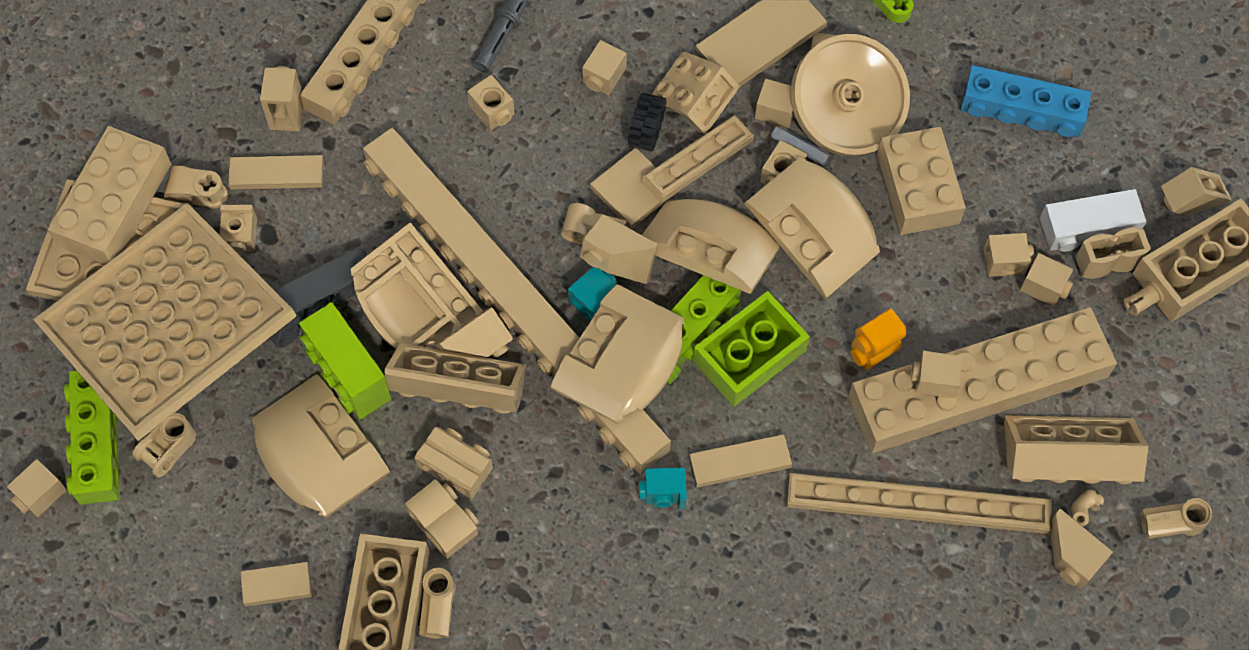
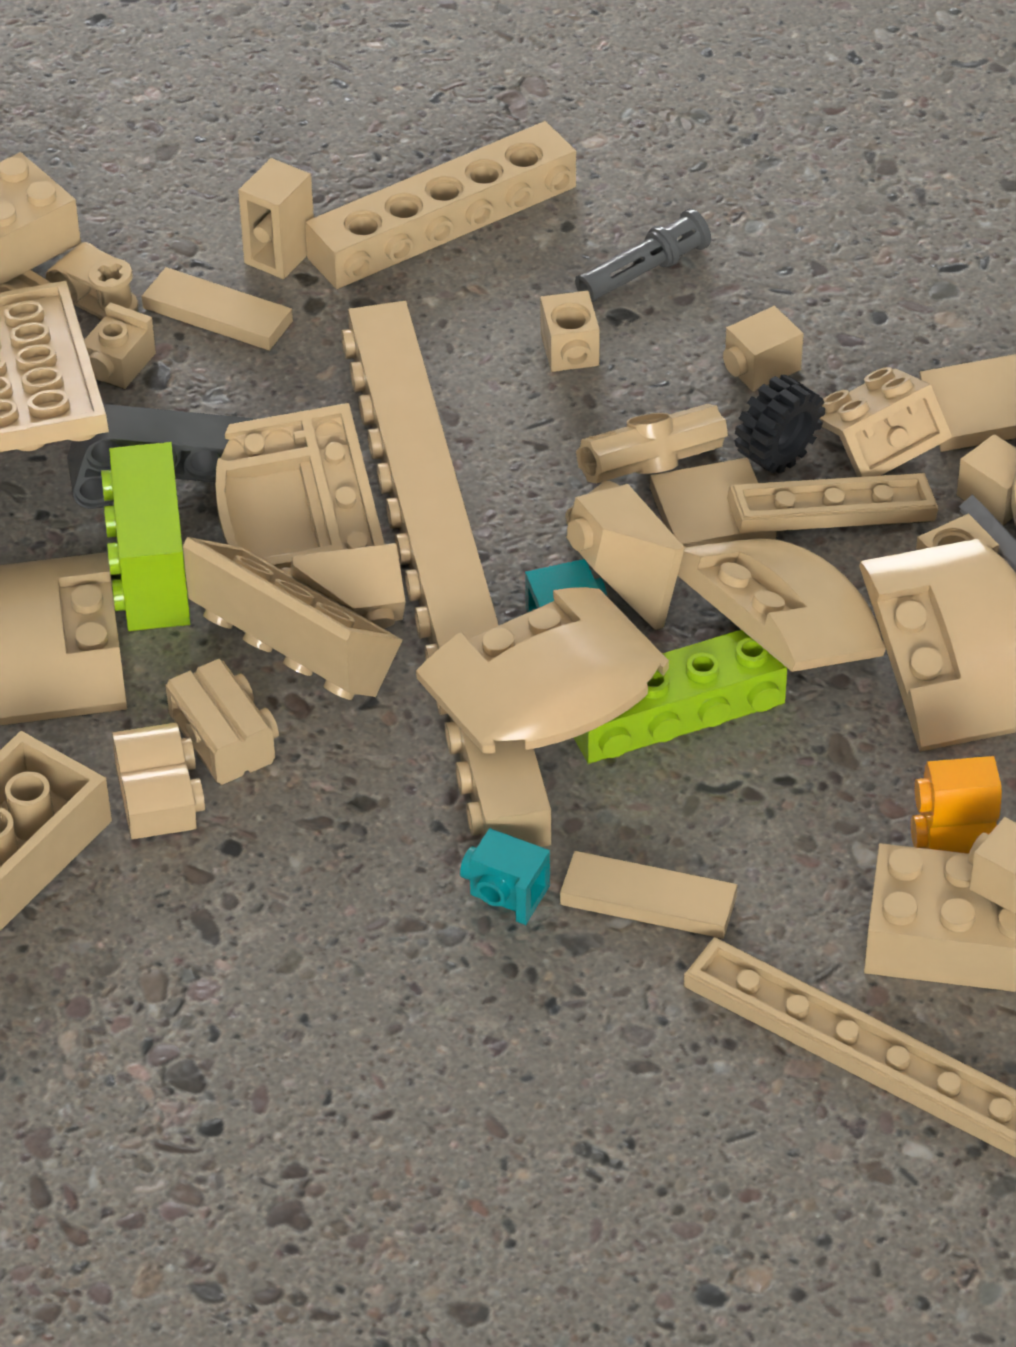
camera: 30 degrees right, 20 degrees down
(436, 606) = (84, 870): tan piece -> none
(582, 164) = (651, 443): none -> tan piece
(750, 348) = (753, 750): lime brick -> none

